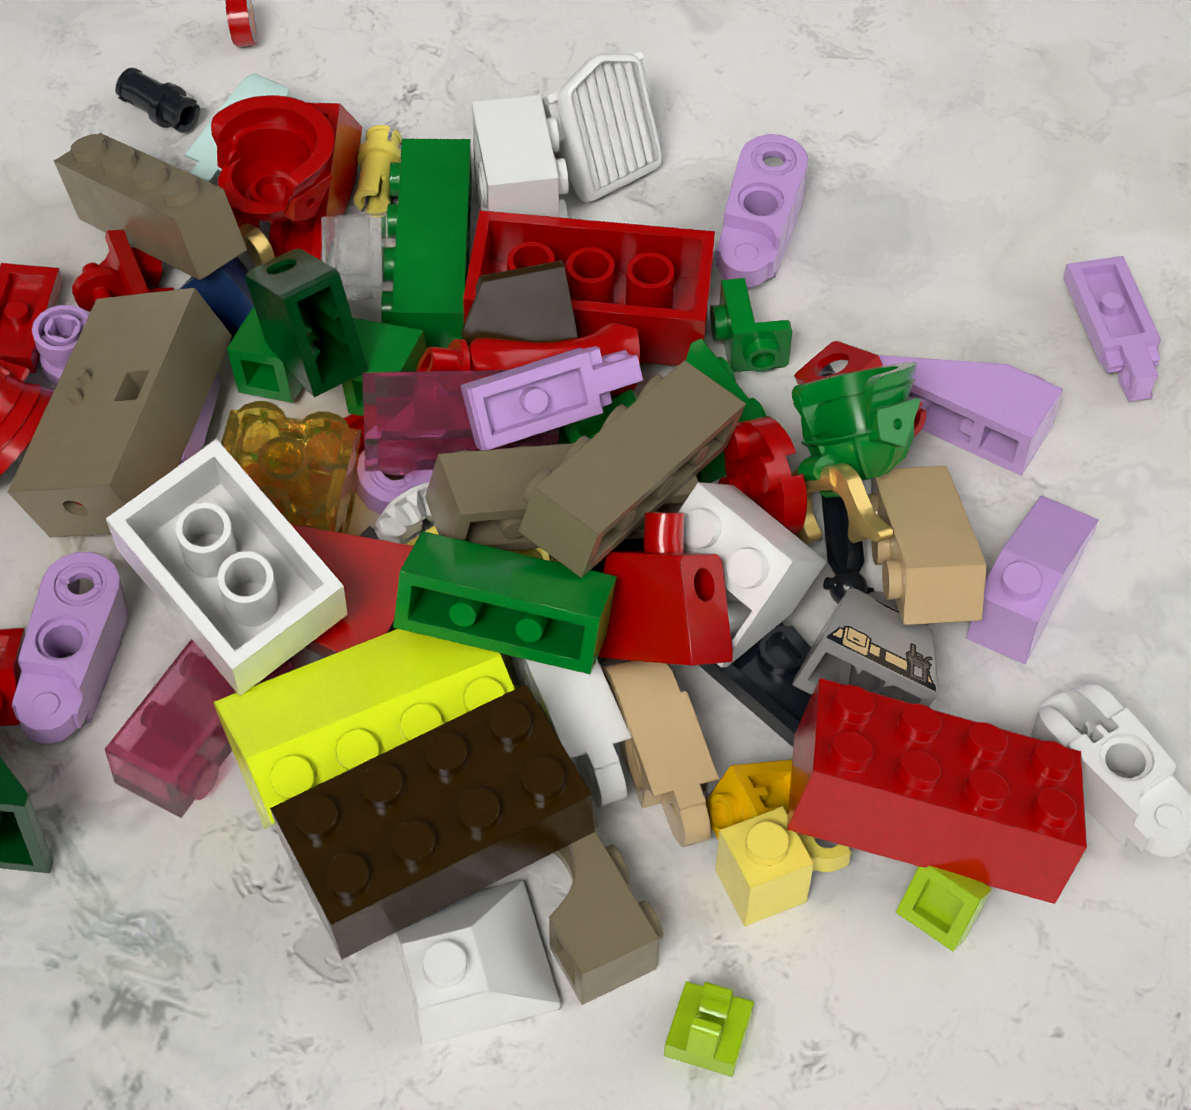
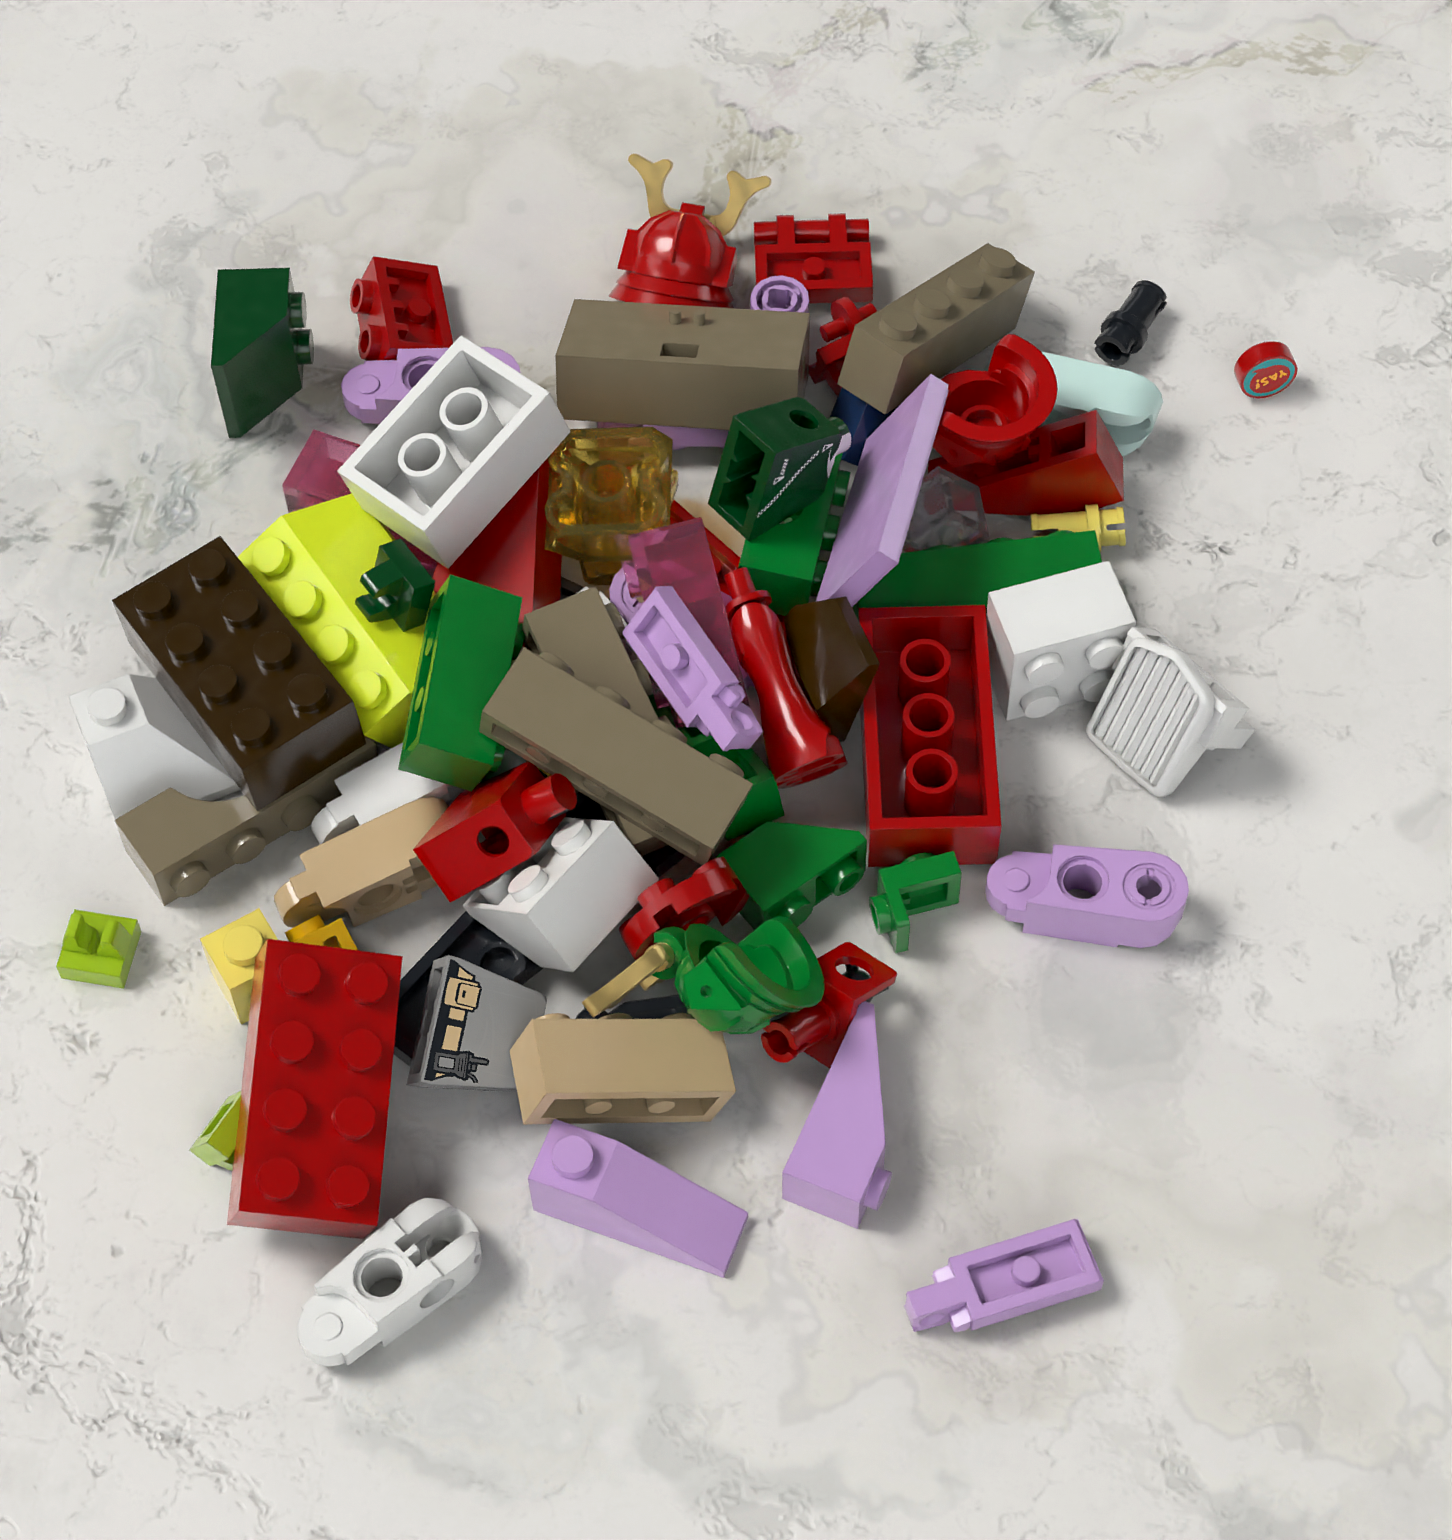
camera: 85 degrees right, 5 degrees up
(376, 644) = (396, 587): none -> dark green tile
(392, 251) = (884, 495): none -> lavender tile

